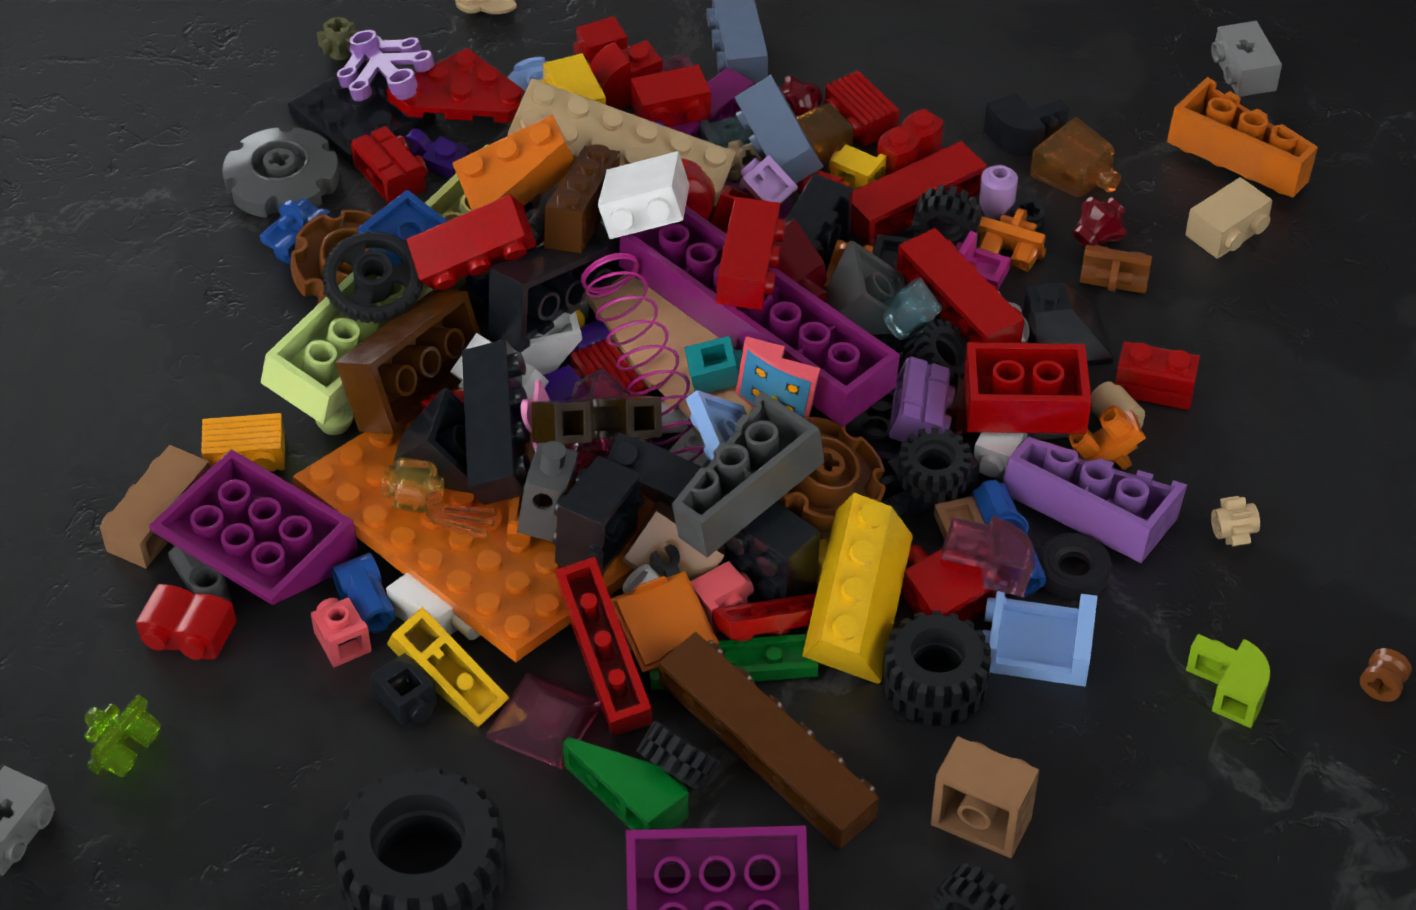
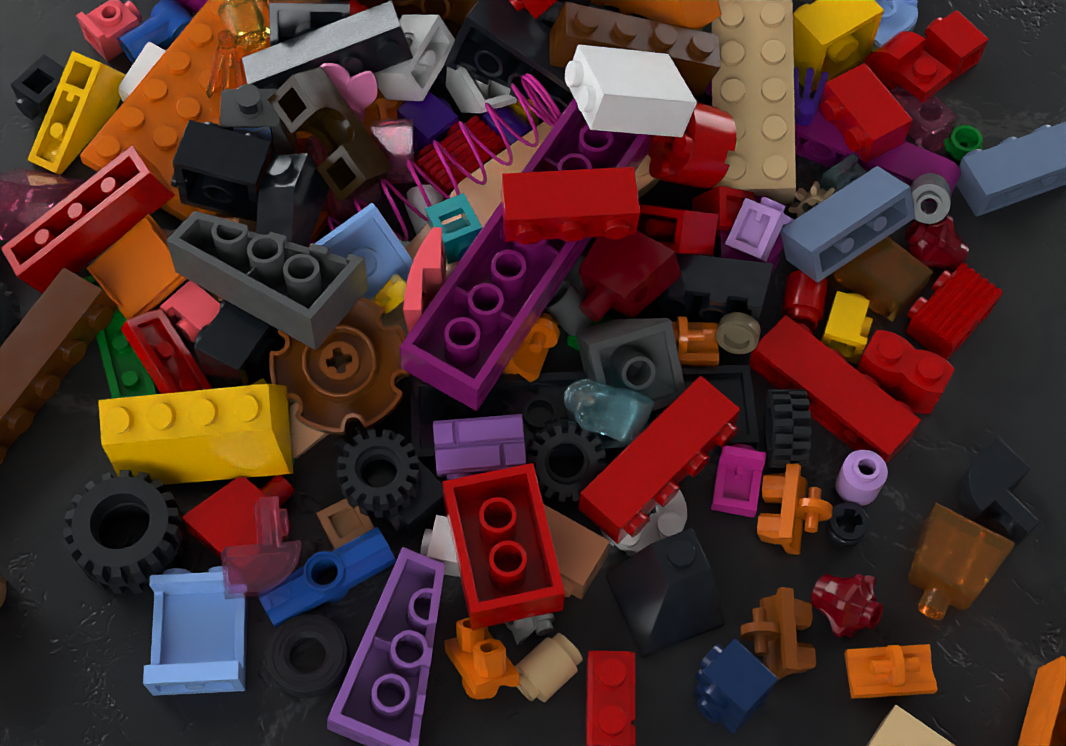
camera: 75 degrees right, 15 degrees up
(705, 61) = (966, 136): none -> green plate
(757, 74) = (932, 187): none -> dark grey brick
(856, 224) = (738, 333): none -> dark tan tile
(1159, 215) = (890, 671): none -> orange hips
(1160, 293) = (732, 685): none -> dark blue brick

